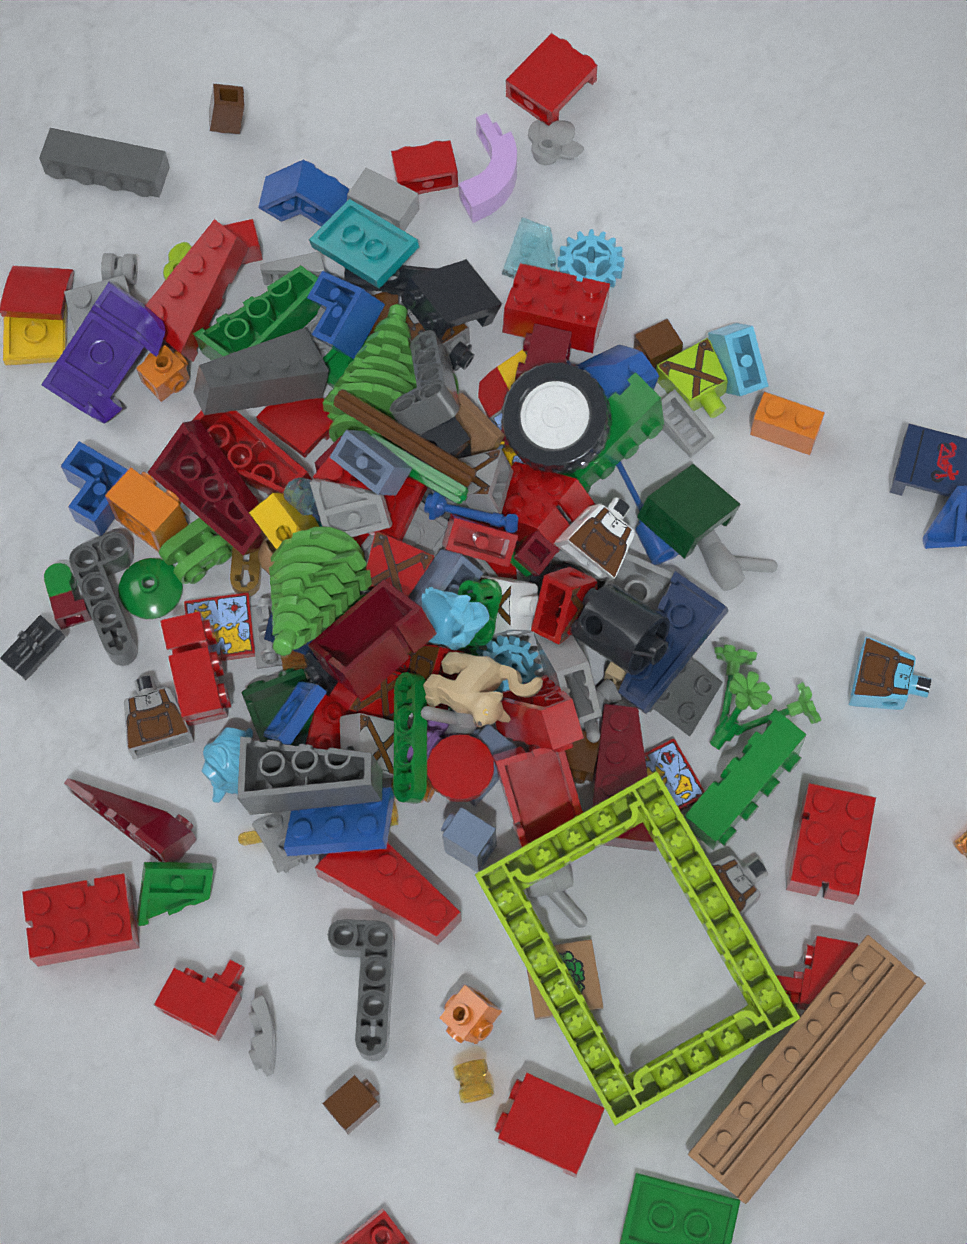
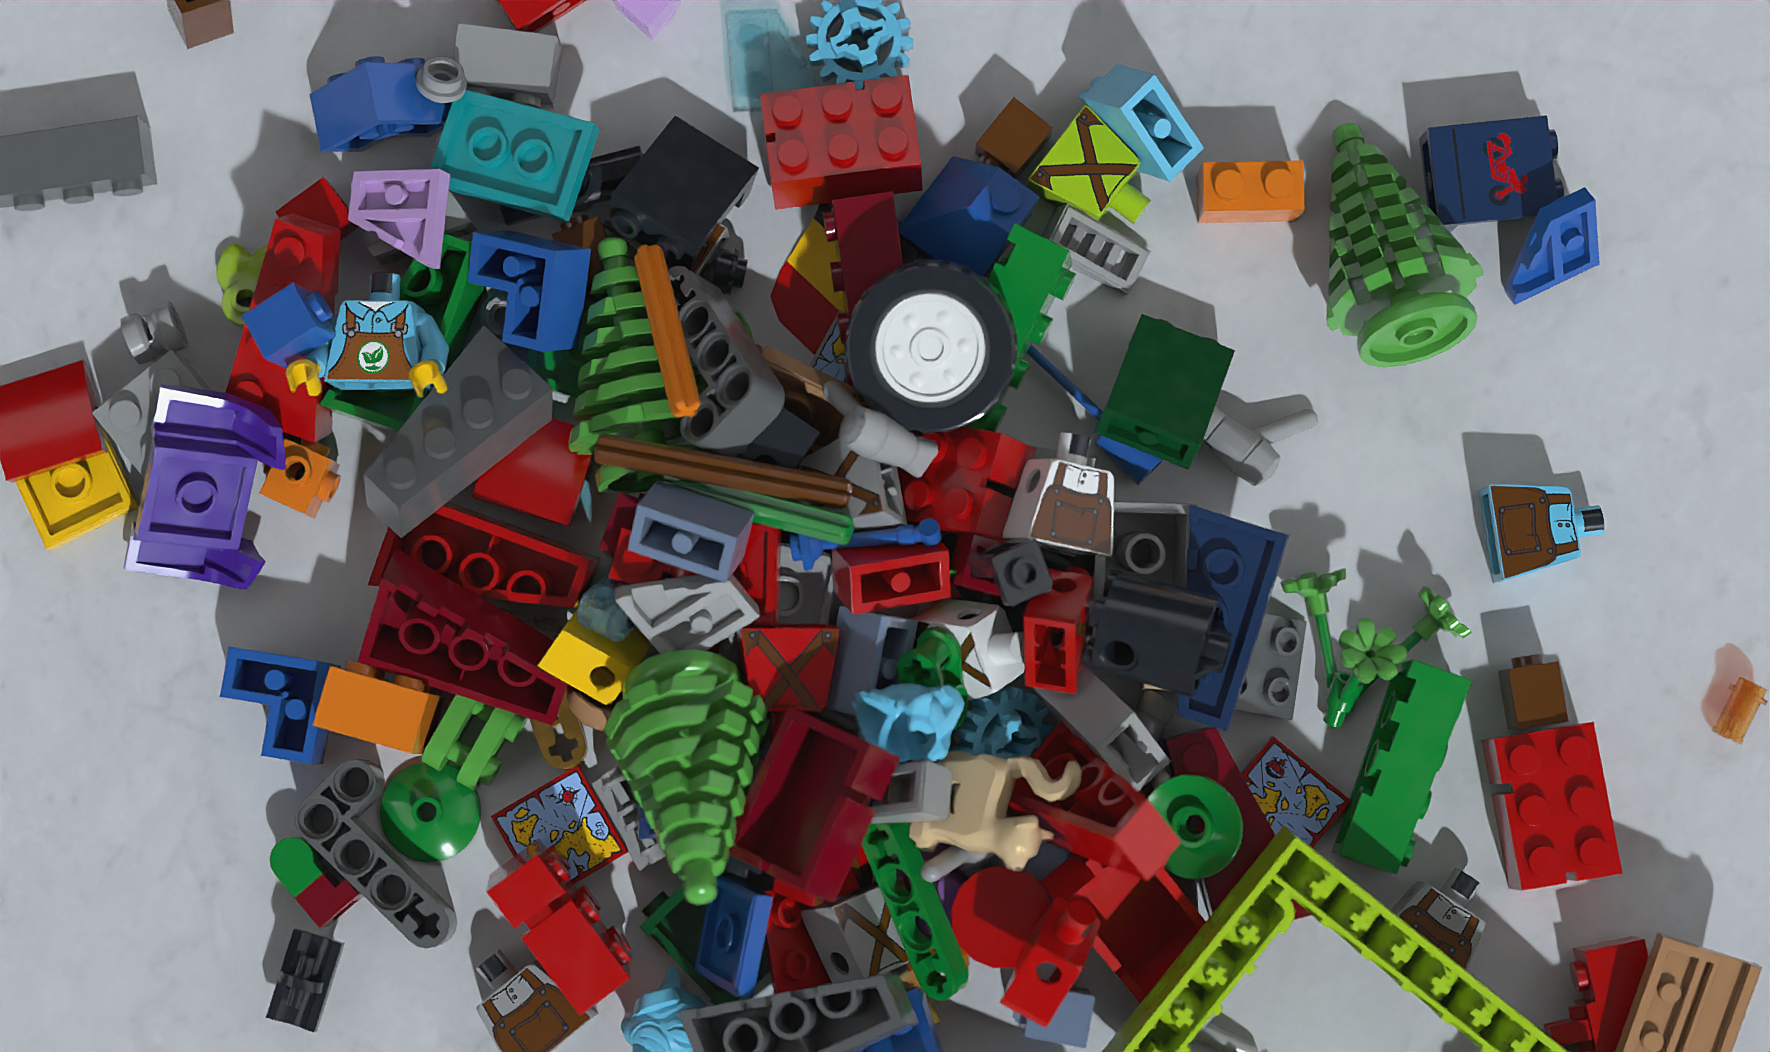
camera: 25 degrees left, 15 degrees up
(195, 273) = (290, 324): none -> blue brick
(237, 308) = (377, 346): none -> torso
(289, 248) = (403, 209): none -> lavender wing
(342, 189) = (441, 80): none -> light grey plate
(407, 356) = (667, 331): none -> orange axle
(434, 660) = (927, 794): none -> light grey slope
(487, 777) = (1061, 938): none -> red torso
(505, 456) = (877, 435): none -> light grey piece
(550, 553) = (1016, 569): none -> black bracket
(584, 755) = (1206, 851): none -> green dish
(847, 769) = (1532, 693): none -> reddish brown brick
(855, 492) = (1392, 262): none -> bright green plant

